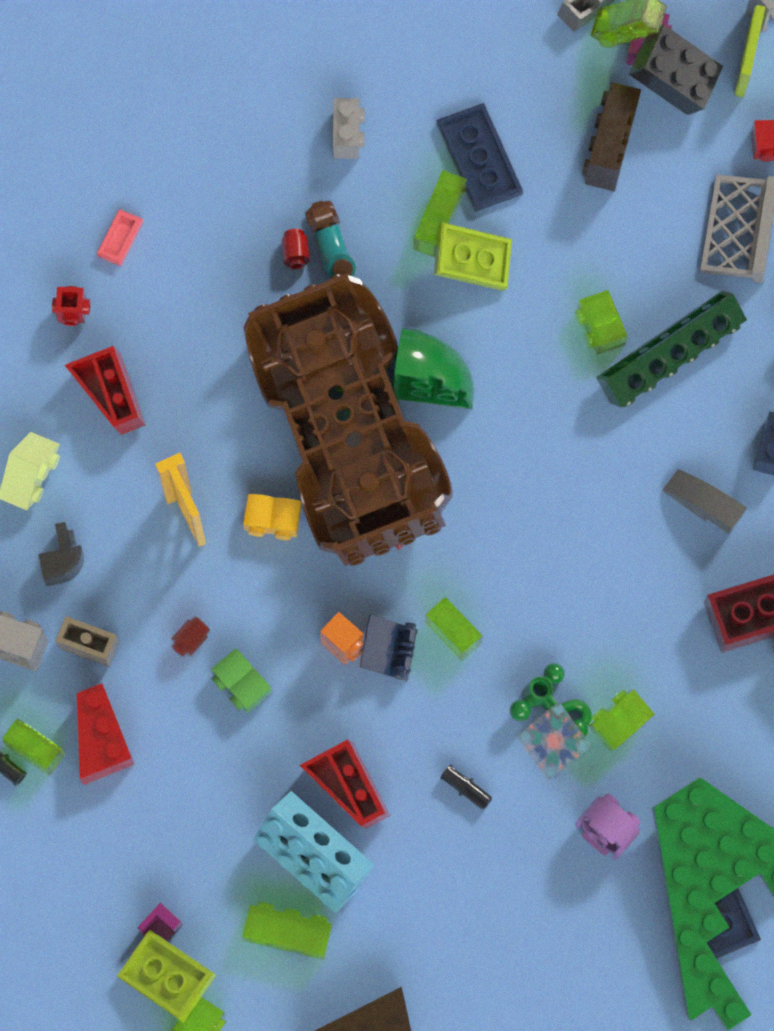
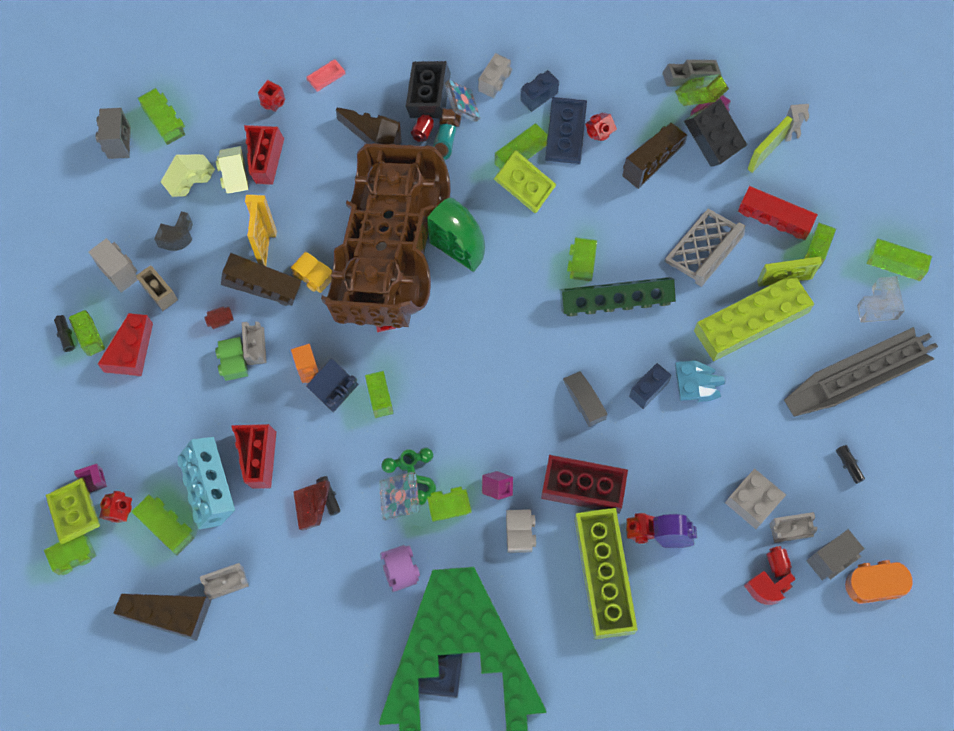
camera: 30 degrees right, 5 degrees down
(84, 428) = (232, 166): none -> yellowish green brick
(213, 562) = (259, 280): none -> dark brown wedge
(216, 942) = (115, 507): none -> red brick
(242, 288) = (371, 129): none -> dark brown wedge
(255, 647) = (253, 343): none -> light grey hinge
(274, 192) = (427, 89): none -> black brick
(327, 185) = (462, 100): none -> clear tile
(406, 958) = (224, 581): none -> light grey hinge
(417, 120) = (539, 90): none -> dark blue brick
(453, 809) = (311, 504): none -> clear red wing
(524, 131) = (600, 126): none -> red brick
(662, 664) = (497, 485): none -> magenta panel
(720, 705) = (519, 531): none -> light grey brick

